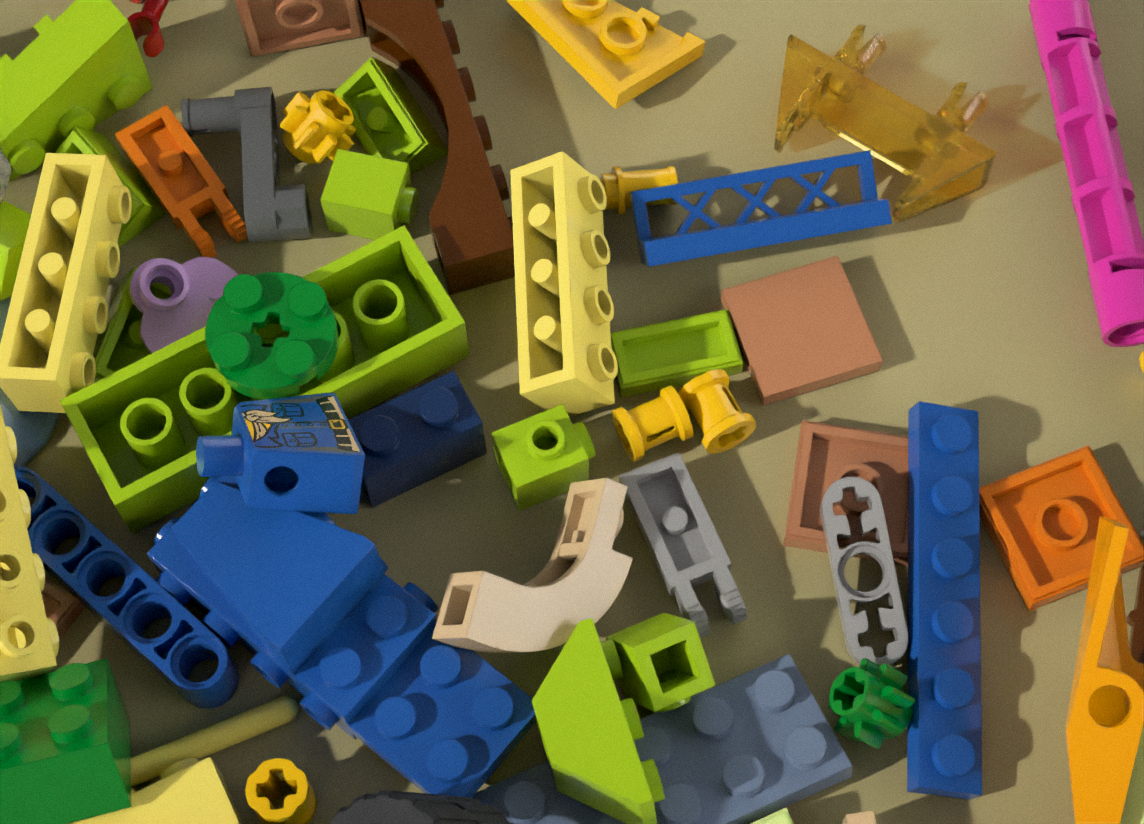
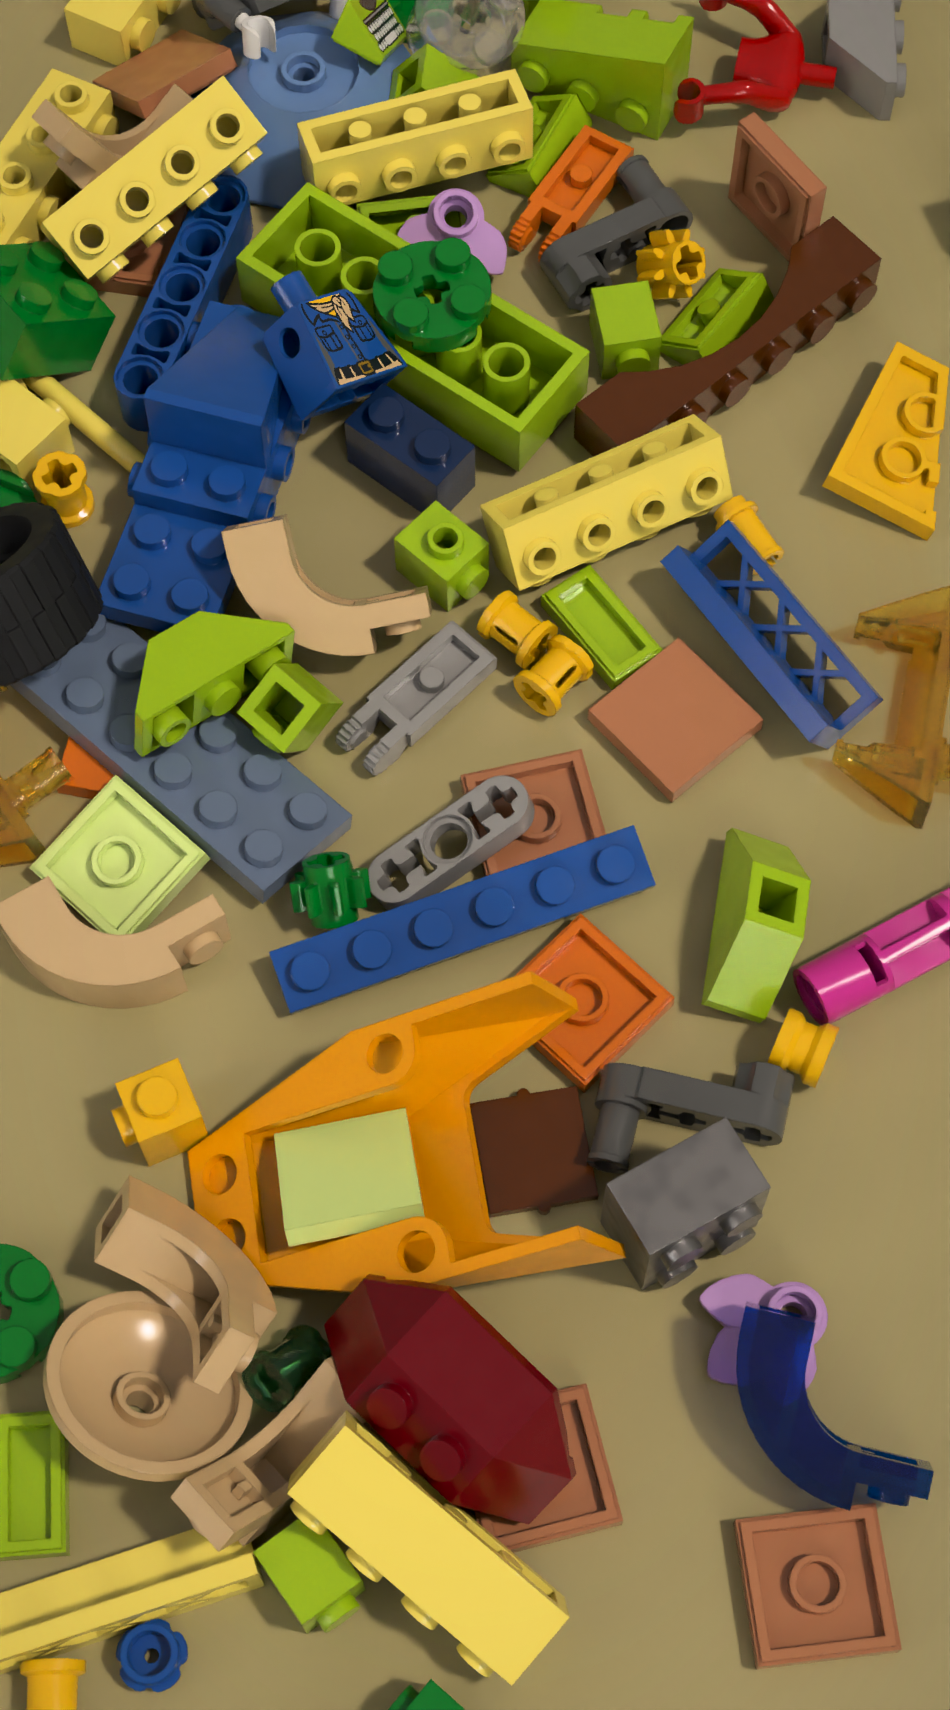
camera: 65 degrees right, 0 degrees up
(1047, 340) = (754, 925): none -> lime slope

